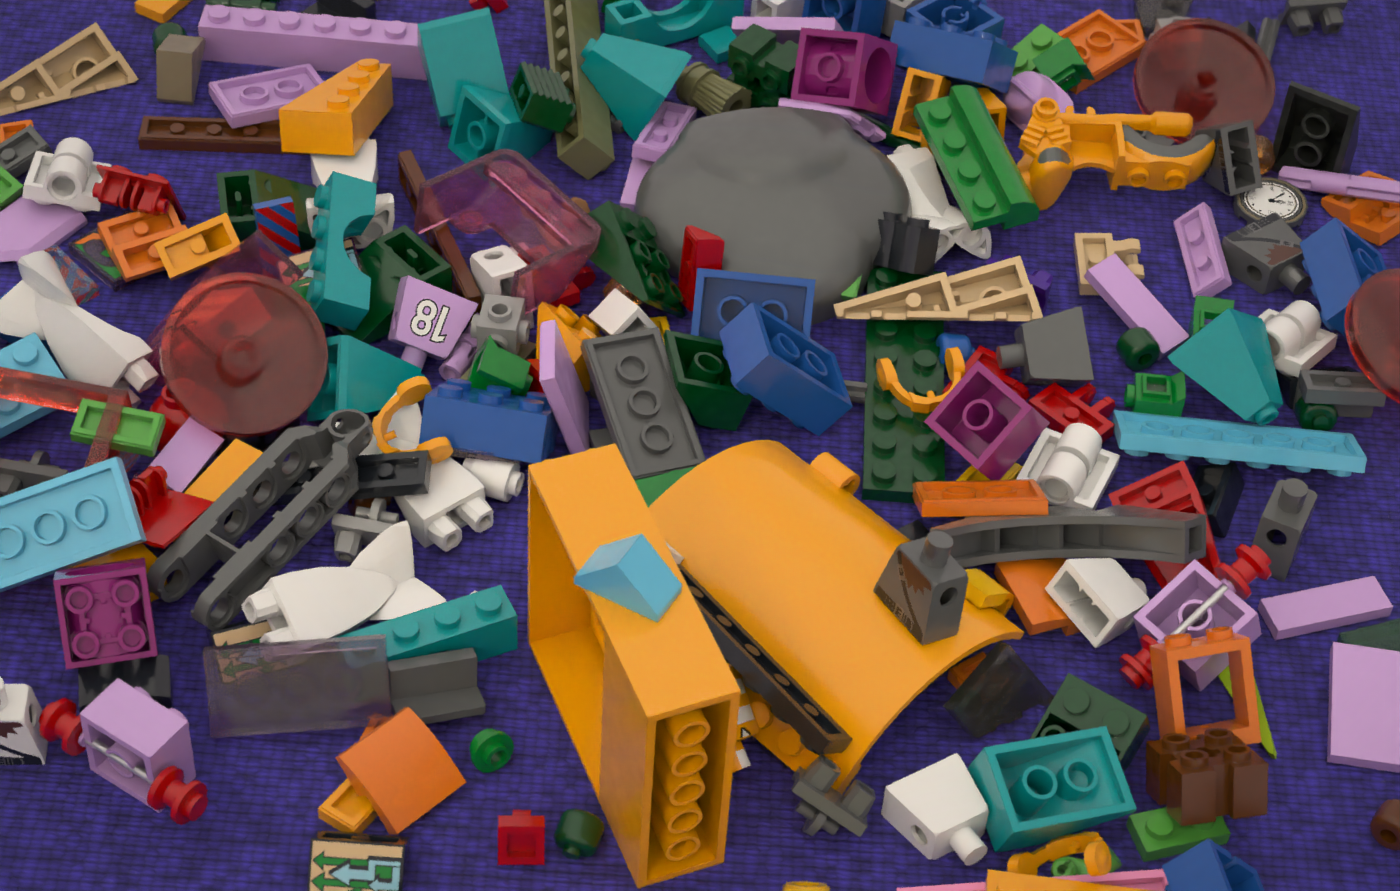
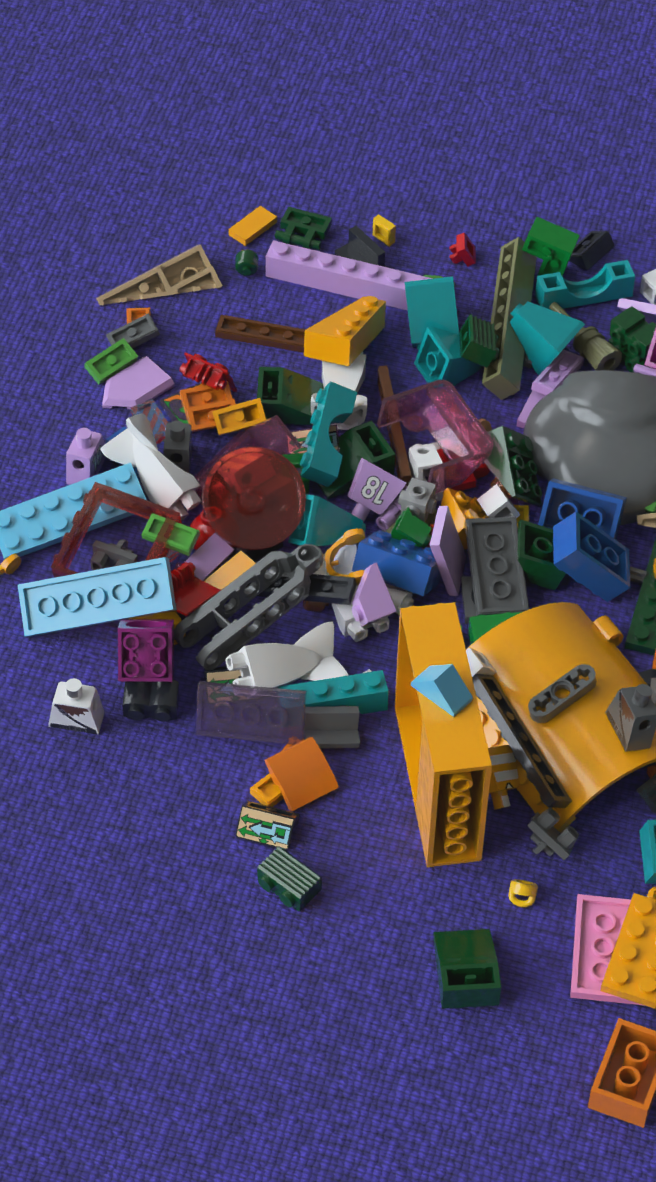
camera: 15 degrees right, 5 degrees up
(64, 176) = (165, 353): white plate -> none
(108, 291) = (179, 440): none -> dark grey torso
(133, 747) = (149, 733): lavender brick -> none
(179, 68) = (249, 283): dark tan slope -> none
(259, 95) = (301, 309): lavender tile -> none
(278, 222) = (291, 410): tile -> none
(360, 530) = (301, 621): light grey hips -> none
(462, 476) = (372, 598): none -> lavender slope
(491, 750) = (357, 770): green plate -> none
(521, 839) = (363, 826): red tile -> none
(578, 833) = (398, 829): dark green piece -> none
(699, 250) = (556, 467): red slope -> none
(717, 43) = (609, 309): teal tile -> none
(795, 590) = (564, 682): none -> dark grey beam
(939, 810) = (616, 852): white torso -> none

